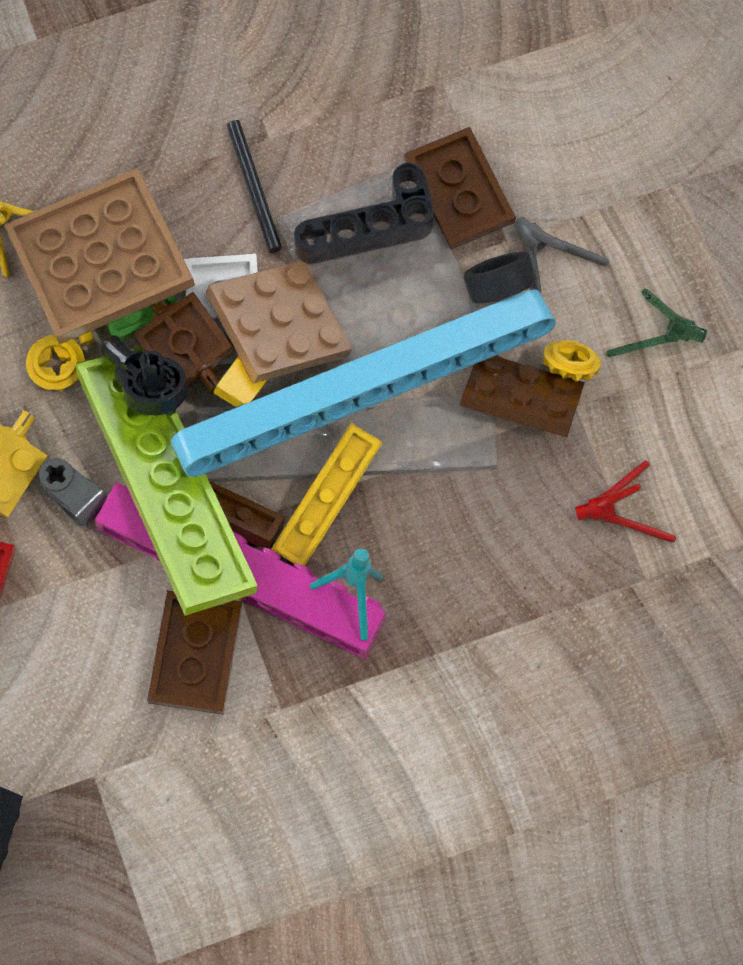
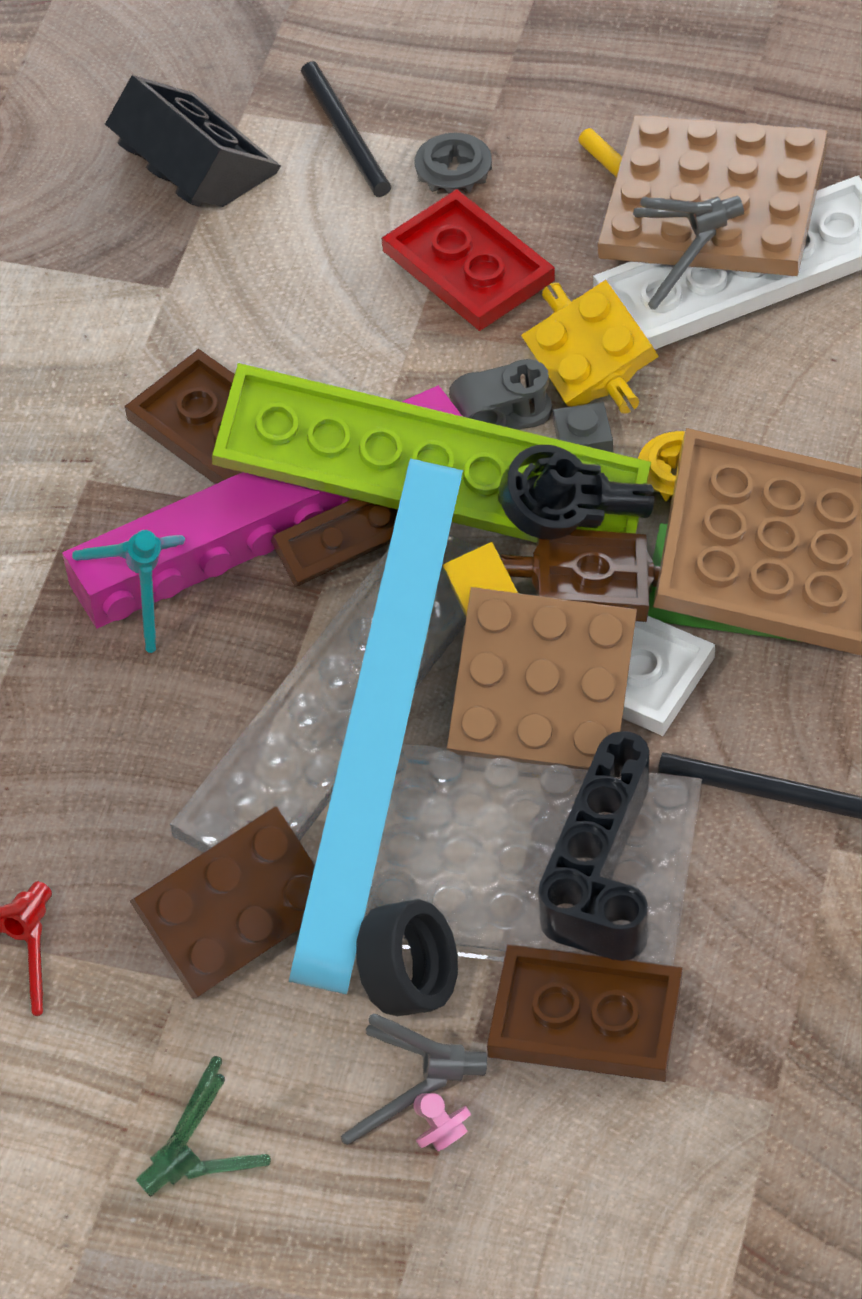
camera: 130 degrees right, 20 degrees down
(60, 436) = (584, 426): none -> dark grey plate
(327, 495) = (284, 630): yellow tile -> none
(559, 358) = (258, 996): yellow gear -> none
(570, 215) = (444, 1127): none -> bright pink plate

